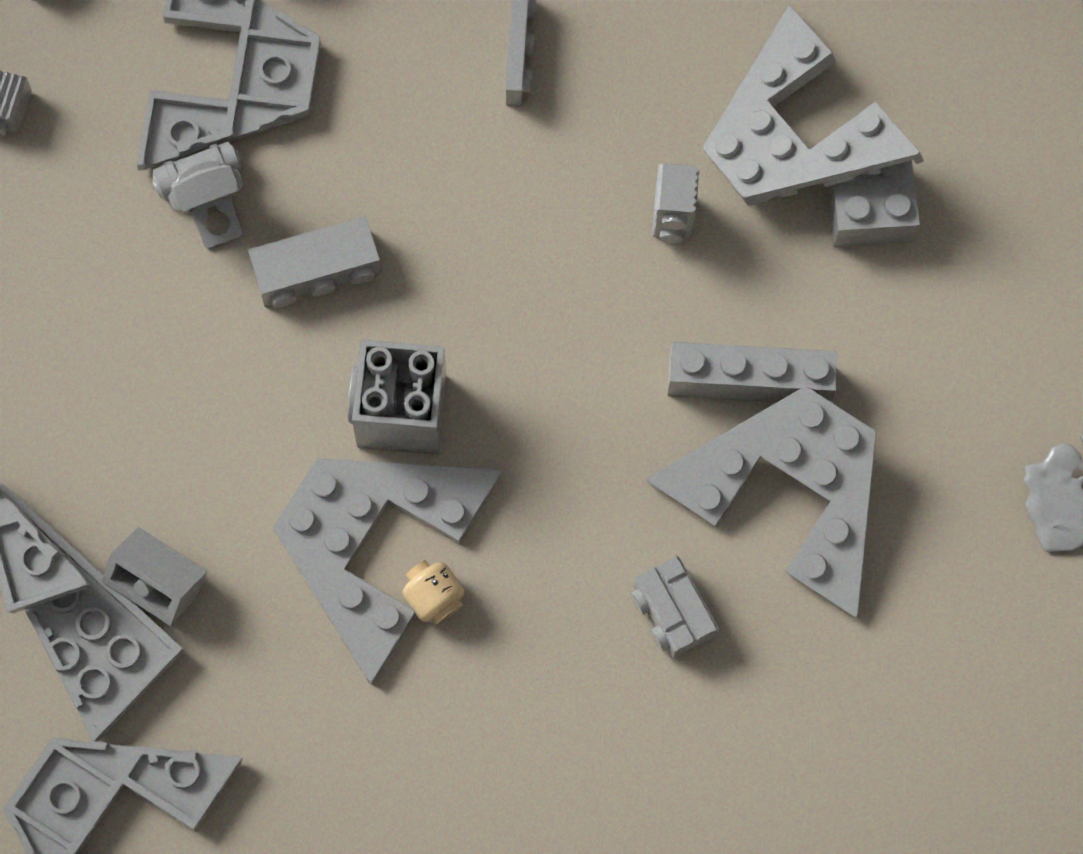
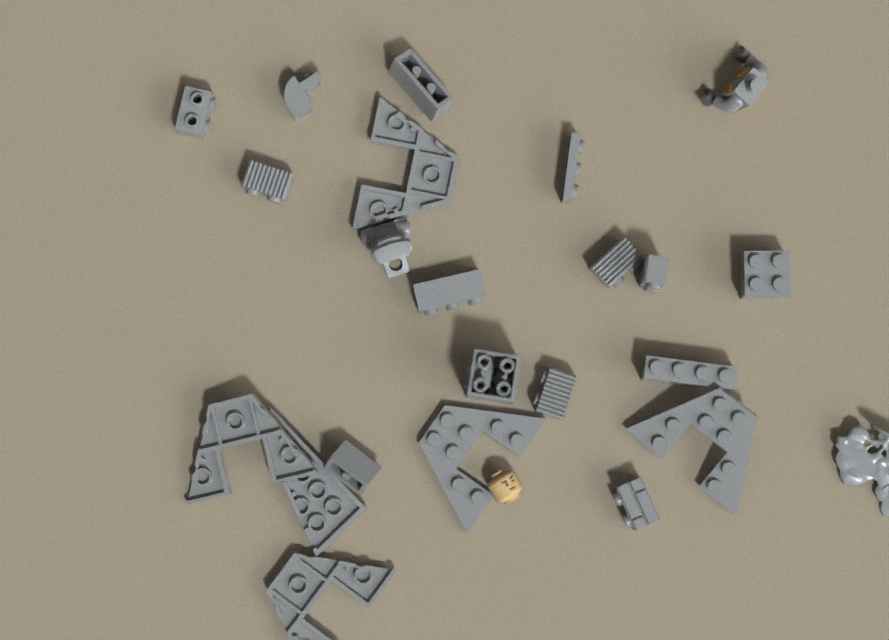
camera: 10 degrees right, 10 degrees up
(514, 424) = (555, 393): none -> light grey brick
(609, 195) = (616, 263): none -> light grey brick
(765, 155) = (703, 241): light grey wing -> none

